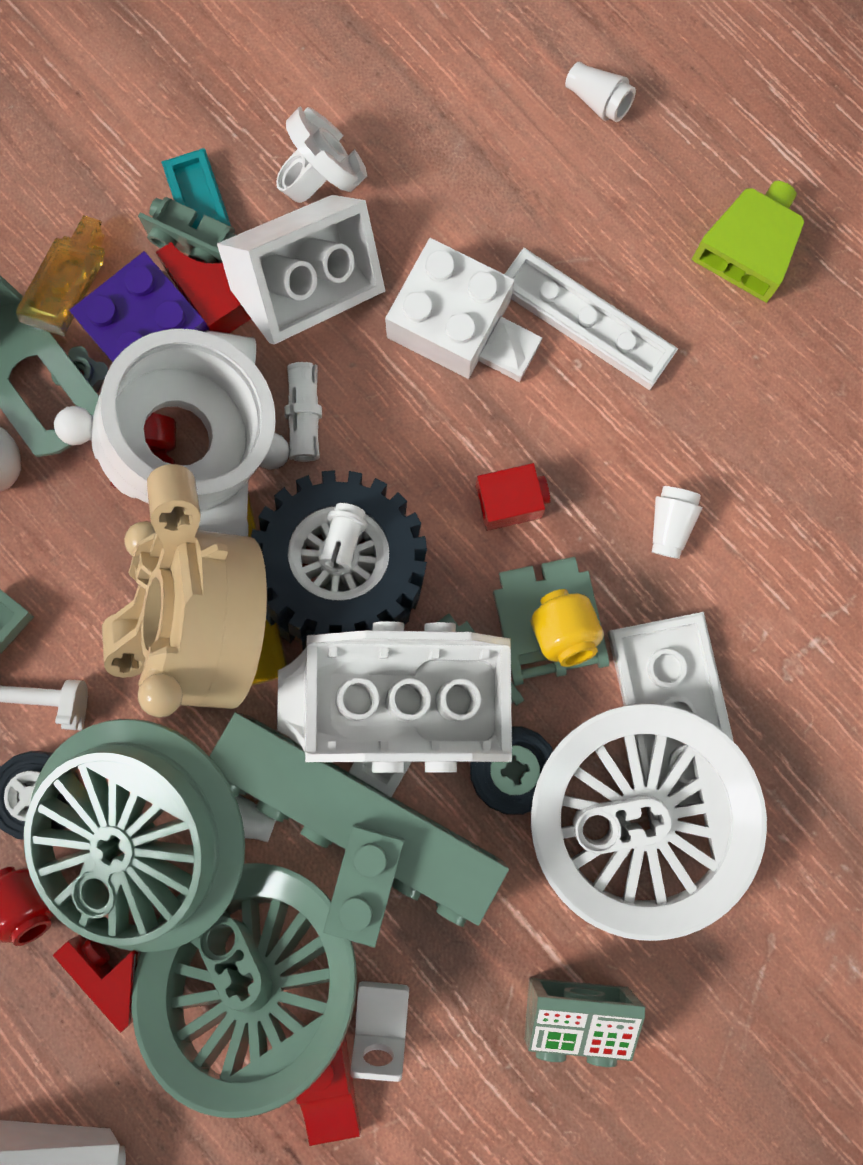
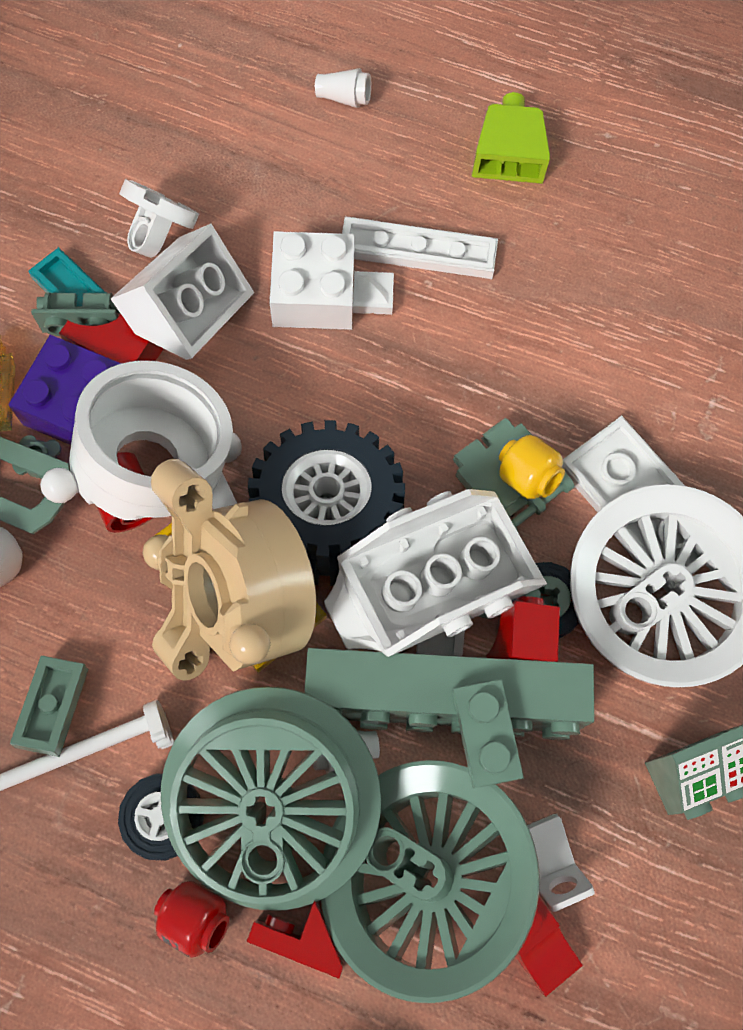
camera: 30 degrees left, 10 degrees down
(303, 411) = (238, 405): white pin -> none
(343, 534) = (323, 461): white pin -> none
(464, 803) = (528, 632): none -> red arch
(512, 496) = (432, 396): red brick -> none
(674, 520) = (563, 358): white cone -> none

